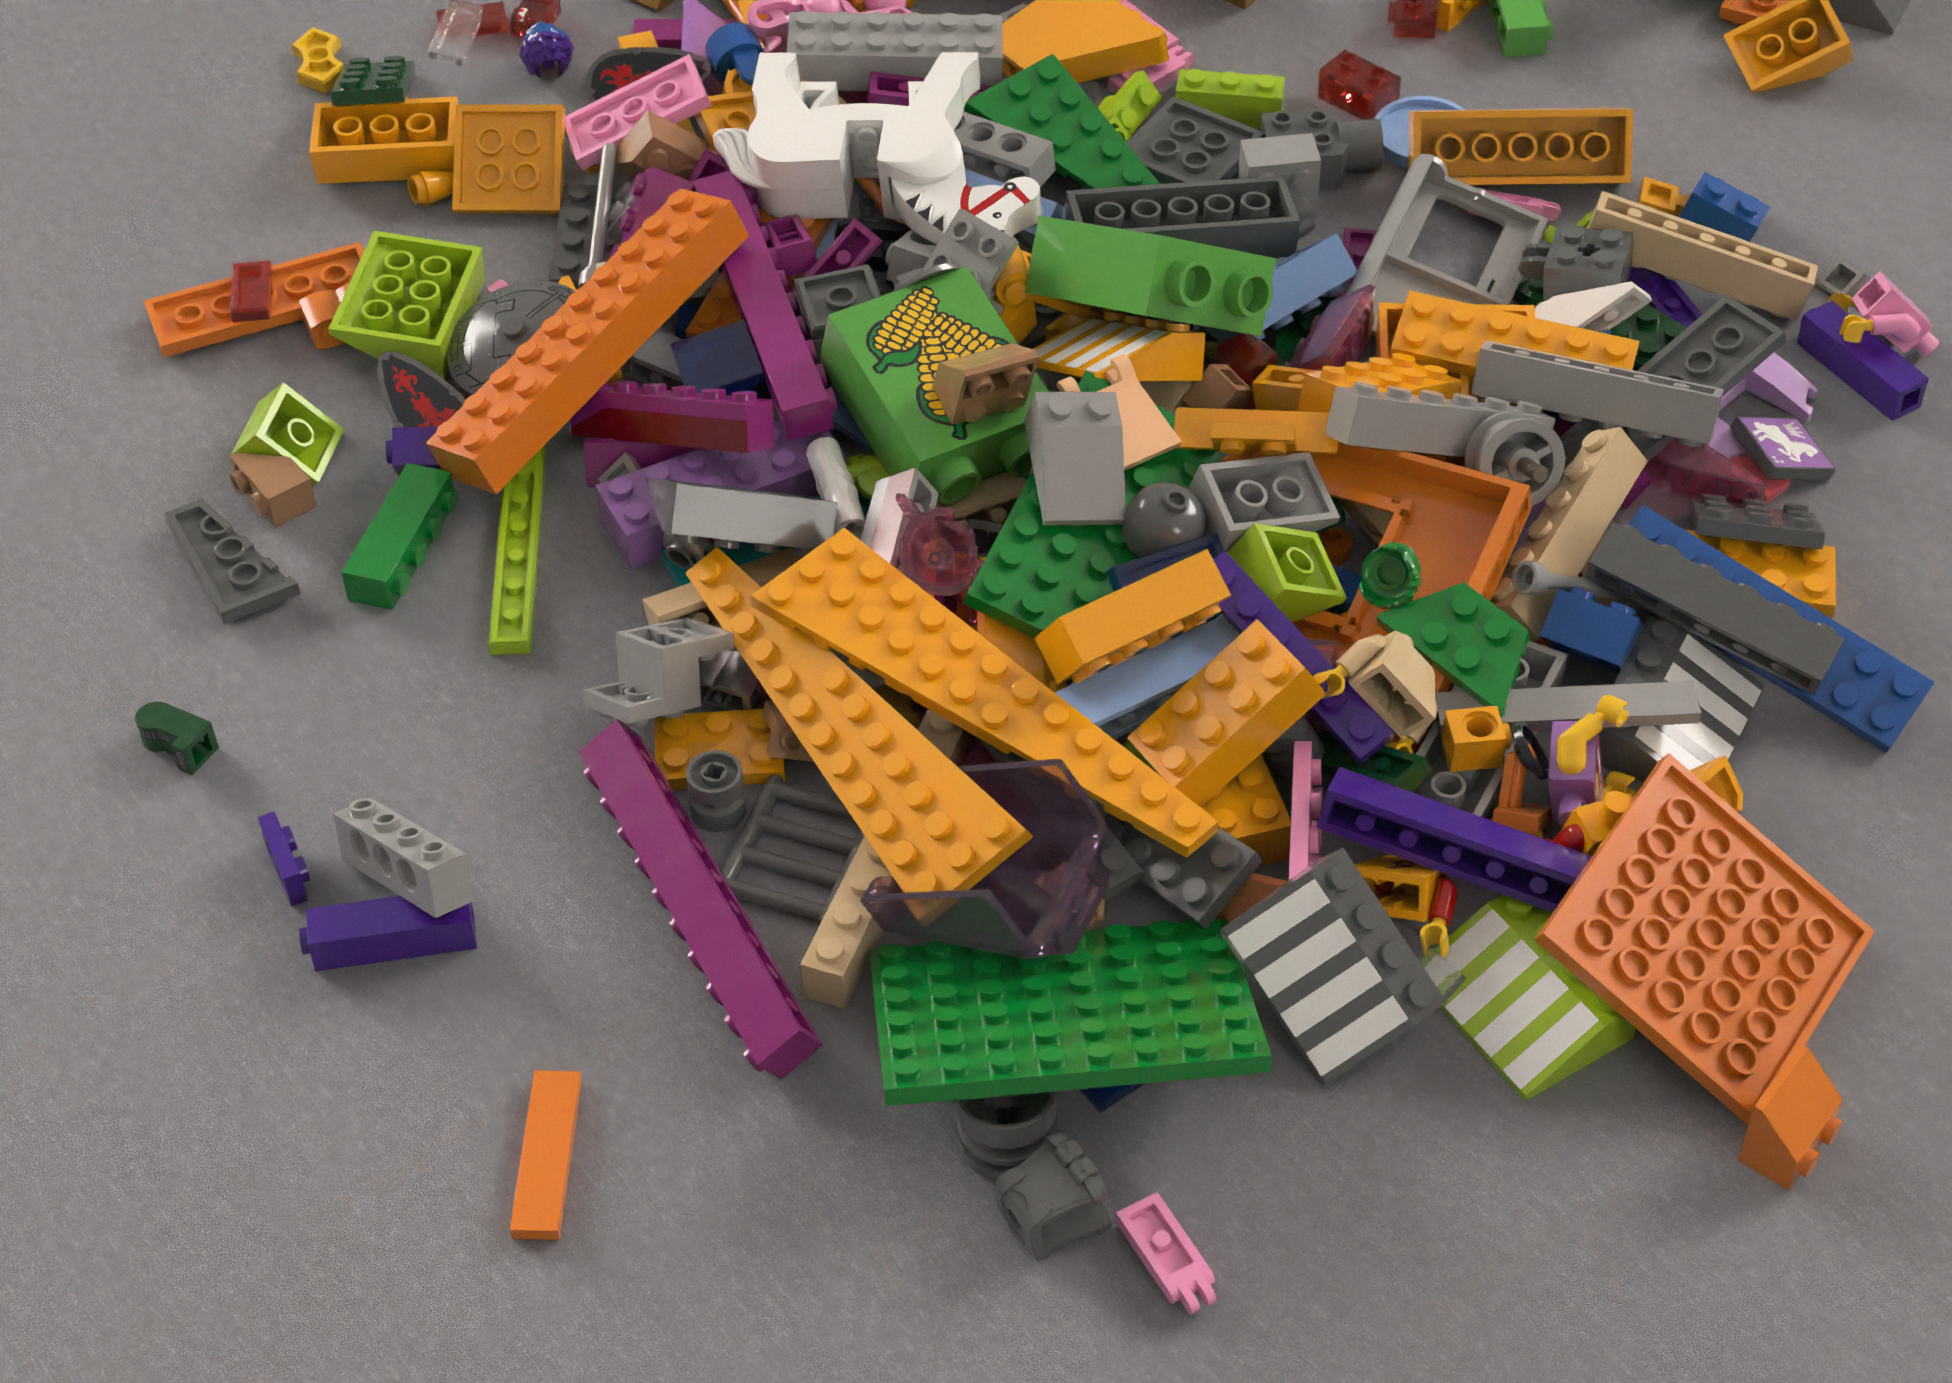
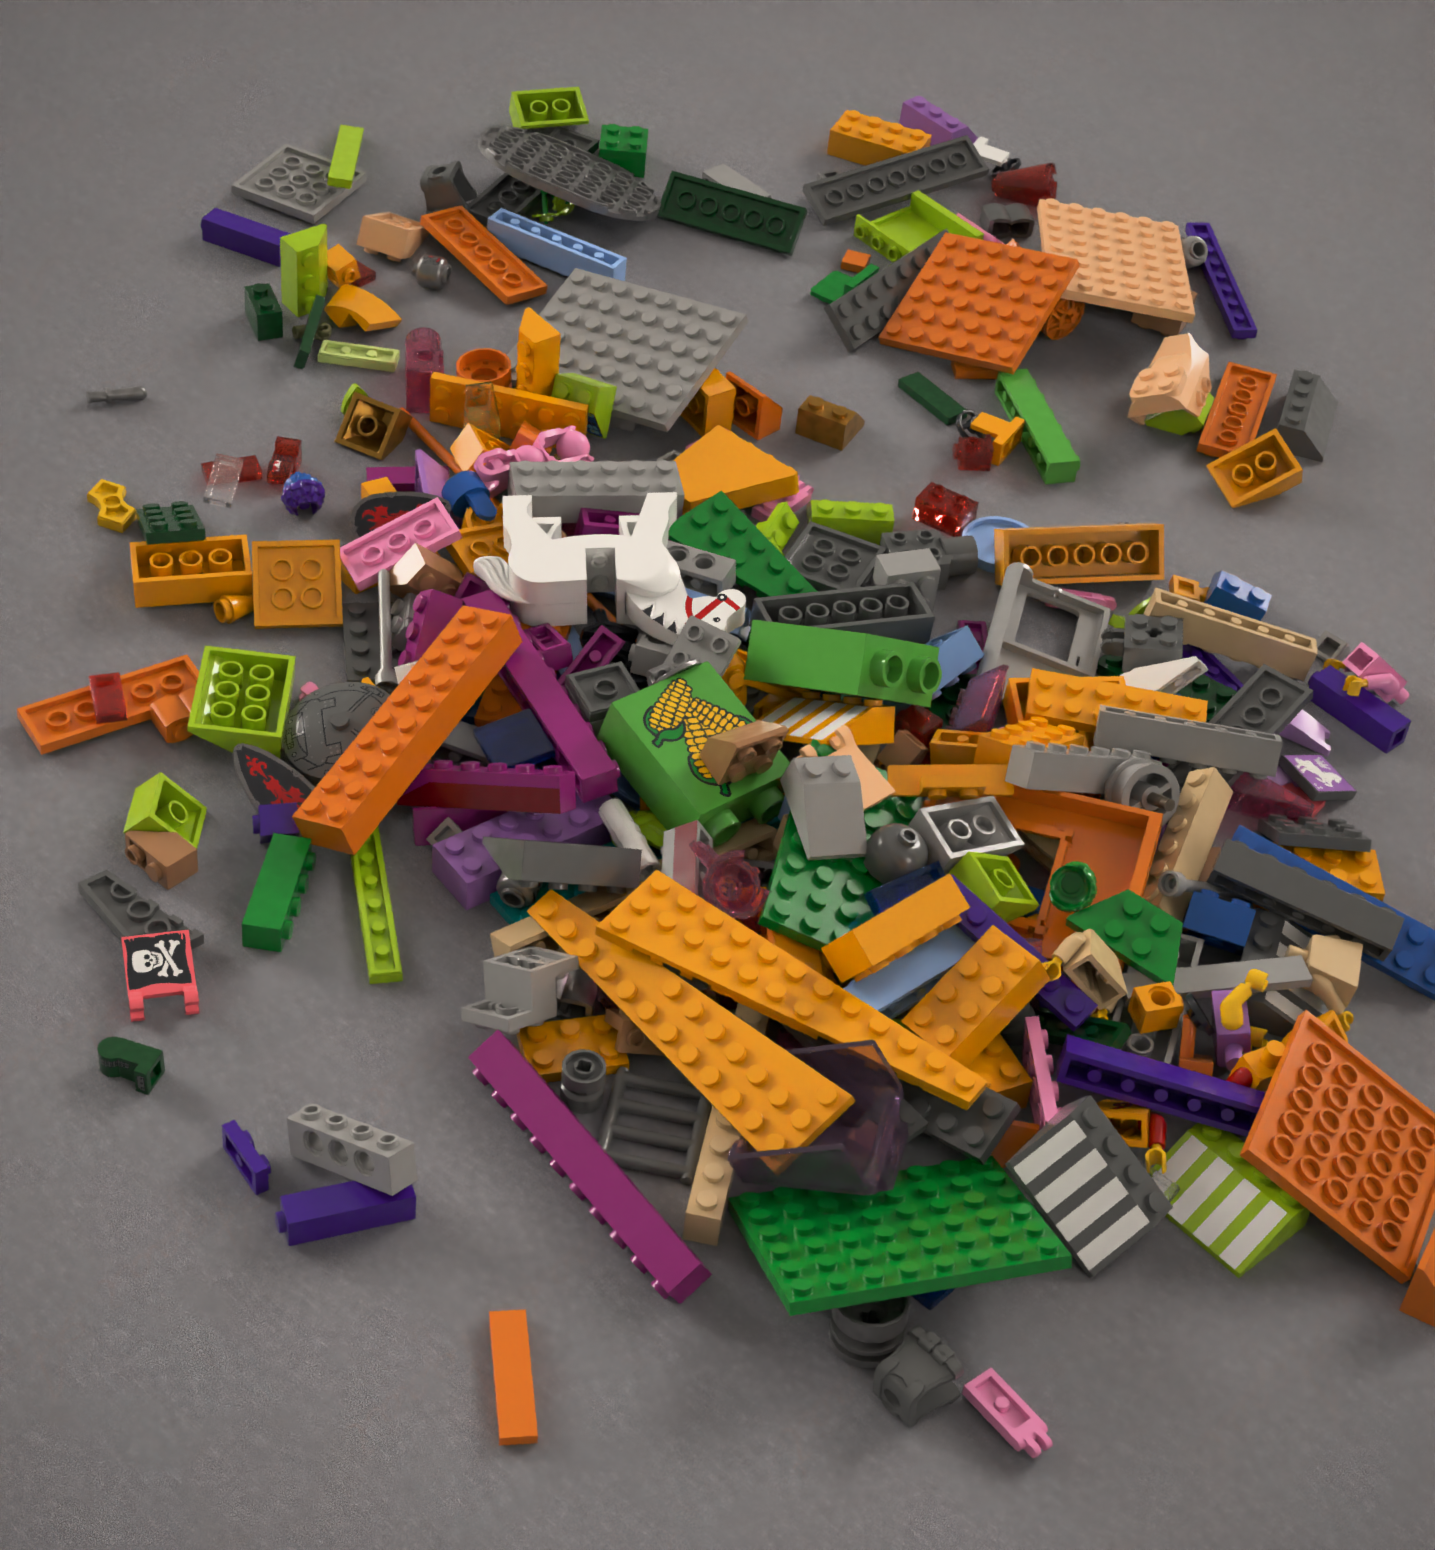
camera: 15 degrees left, 5 degrees down
(234, 621) = (157, 968): none -> flag
(1735, 705) = (1334, 971): none -> tan torso

